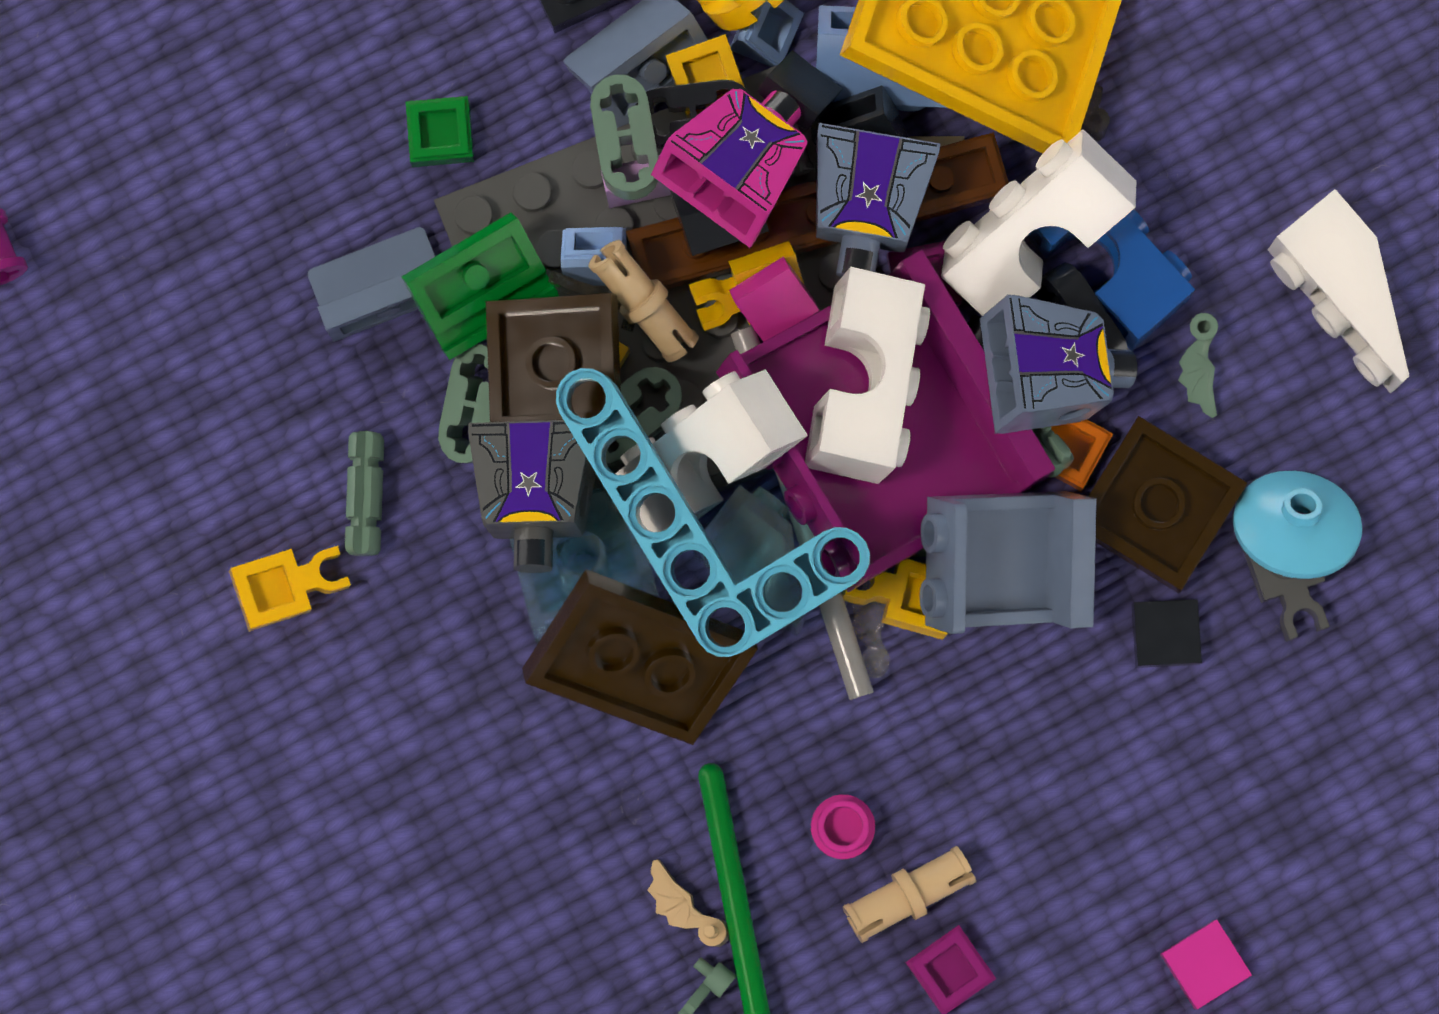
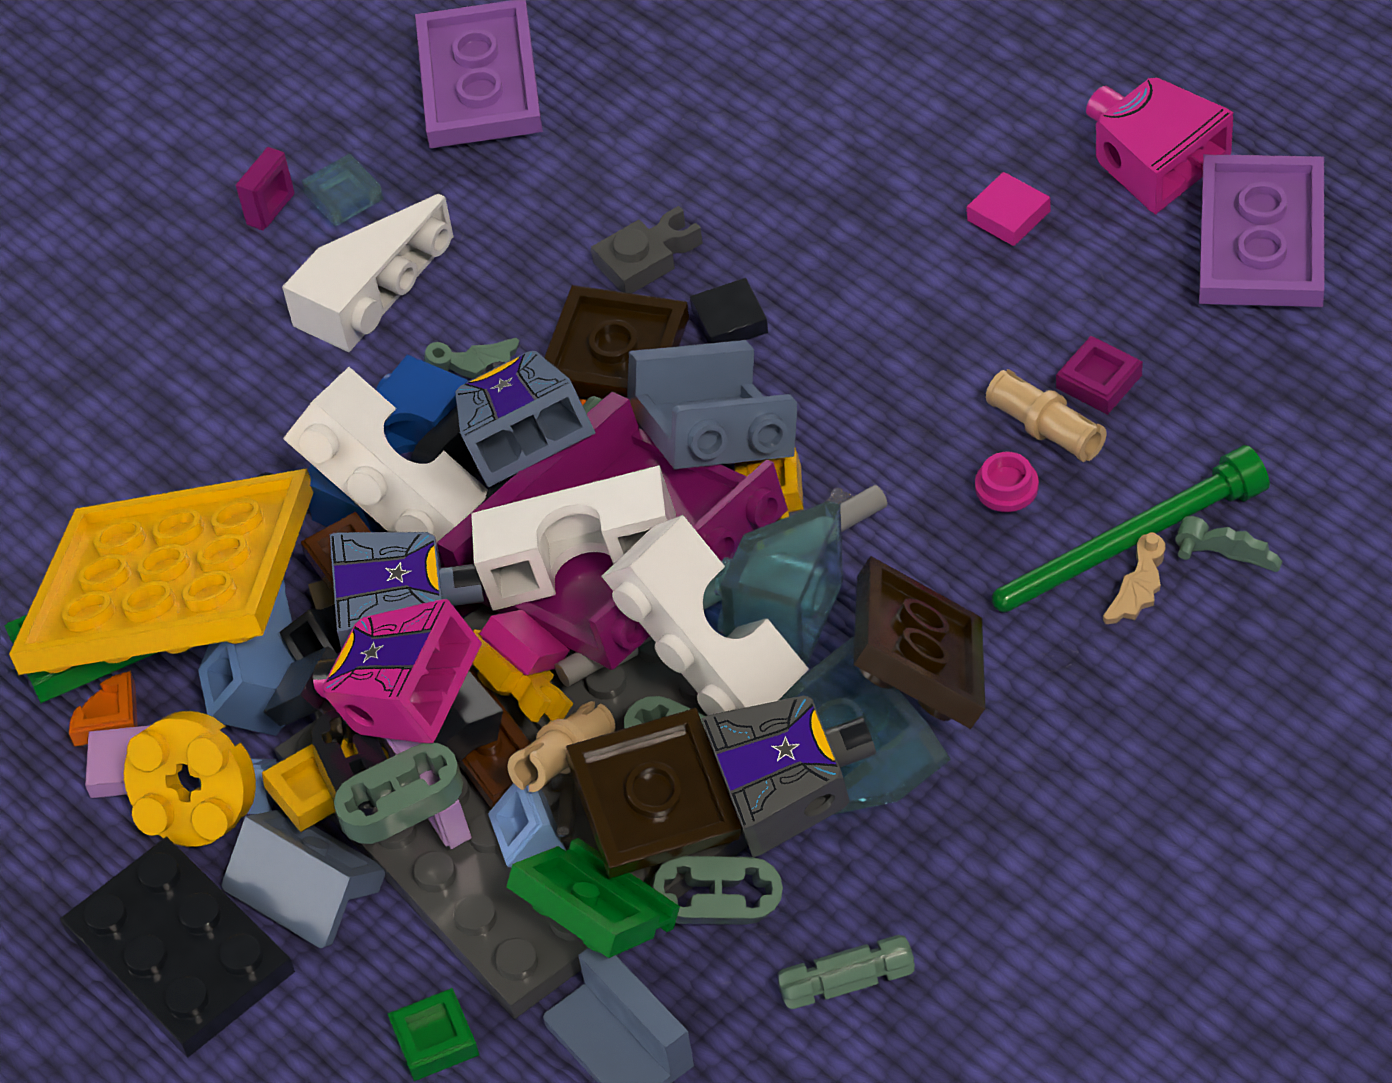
camera: 105 degrees left, 30 degrees down
(278, 588) = (973, 1012): yellow plate -> none
(687, 533) = (838, 552): medium azure beam -> none
(1295, 542) = (597, 243): medium azure dish -> none

